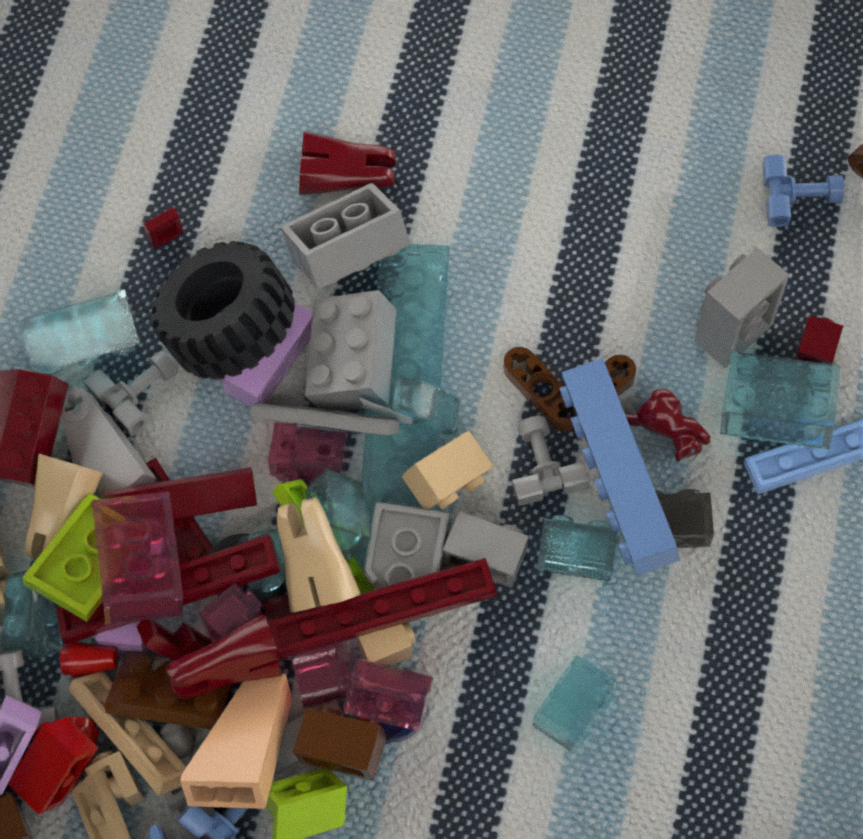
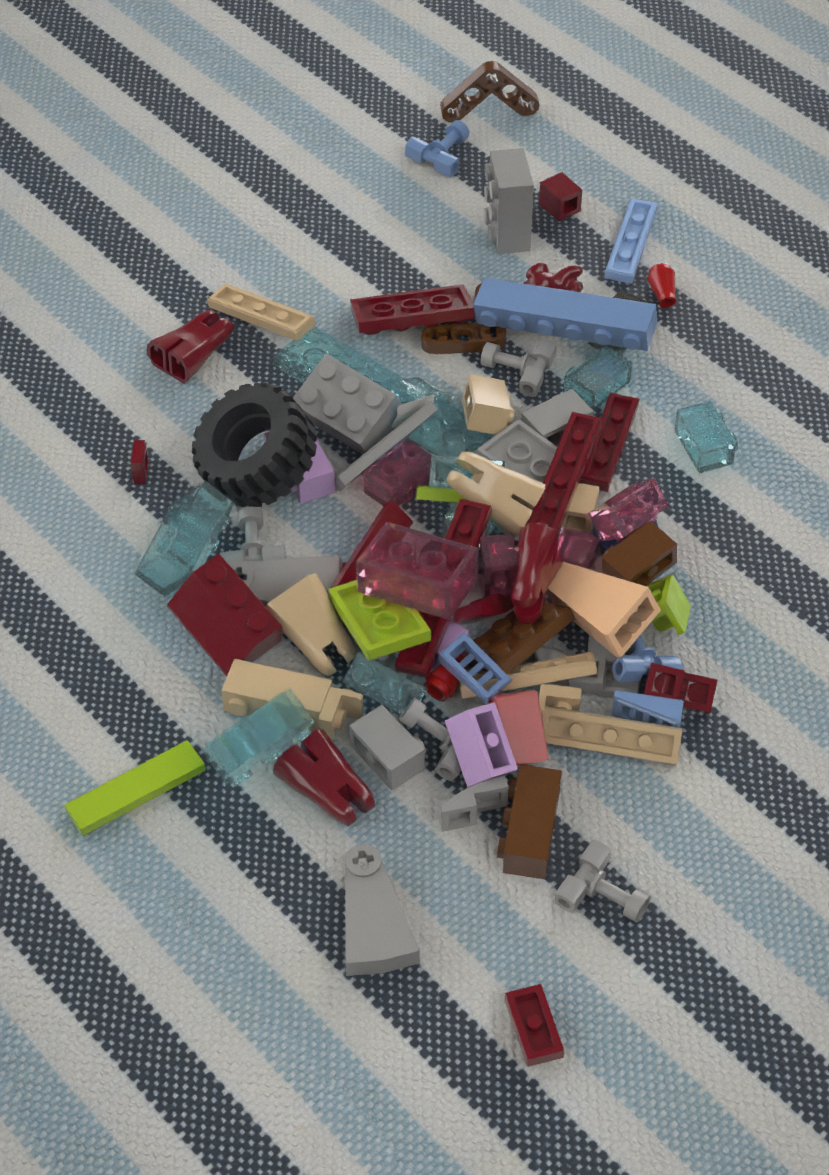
camera: 55 degrees left, 15 degrees down
(78, 669) = (465, 643): none -> medium blue slope
(345, 236) = (257, 353): light grey brick -> none
(429, 193) = (261, 312): none -> tan tile
(506, 613) = (611, 440): none -> dark red tile
(534, 317) = (412, 309): none -> dark red plate
(769, 527) = (662, 281): none -> red cone
(780, 400) = (584, 227): clear light blue brick -> none

